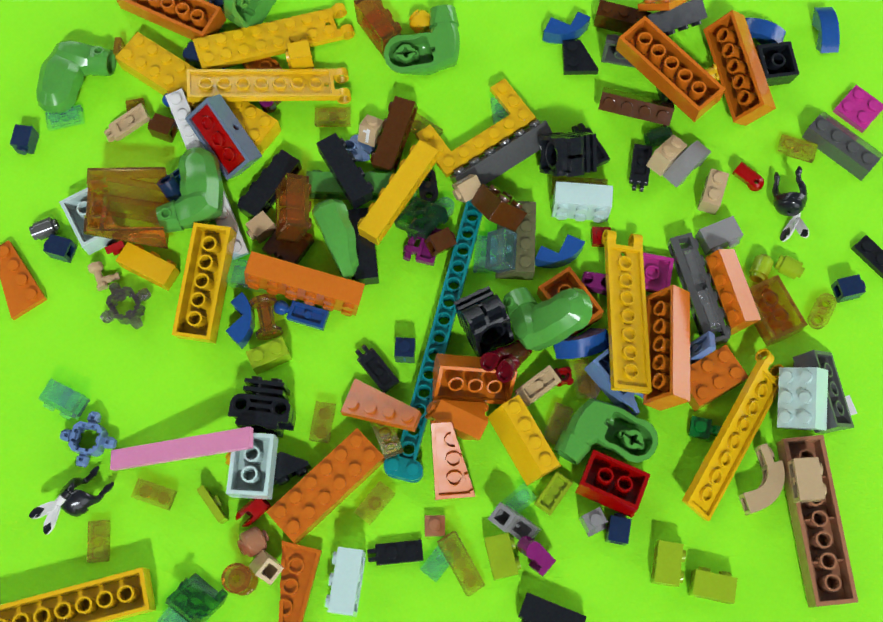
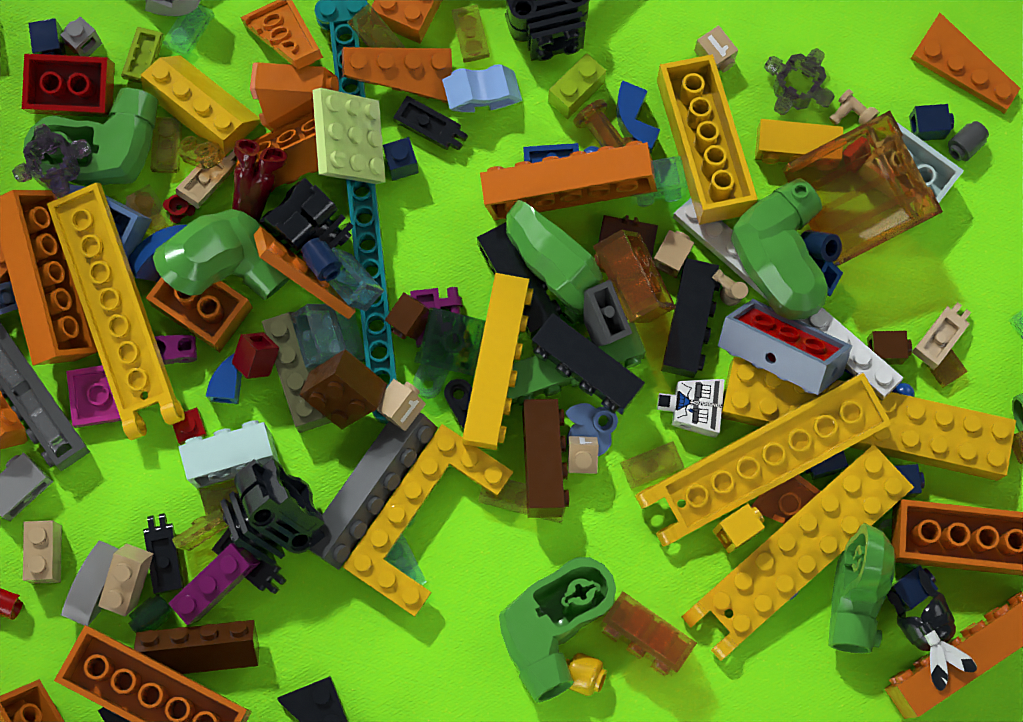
camera: 155 degrees right, 5 degrees up
(167, 346) = (719, 45): none -> tan brick
(237, 193) = (731, 292): none -> tan piece
(291, 136) = (695, 405): none -> white torso
(321, 185) = (604, 315): none -> dark grey slope
(332, 377) = (478, 88): none -> light blue brick
(434, 357) = (348, 136): none -> yellowish green plate
(469, 272) = (354, 282): none -> clear light blue brick
(483, 280) = (321, 260): none -> dark blue brick
(501, 283) = (296, 269): none -> orange wing
(537, 404) = (200, 152): none -> clear yellow plate
(545, 250) = (255, 355): none -> dark red panel
(612, 169) = (200, 531): none -> clear yellow plate
(618, 134) = (213, 583): none -> magenta brick
(654, 420) = (47, 142): none -> clear purple piece

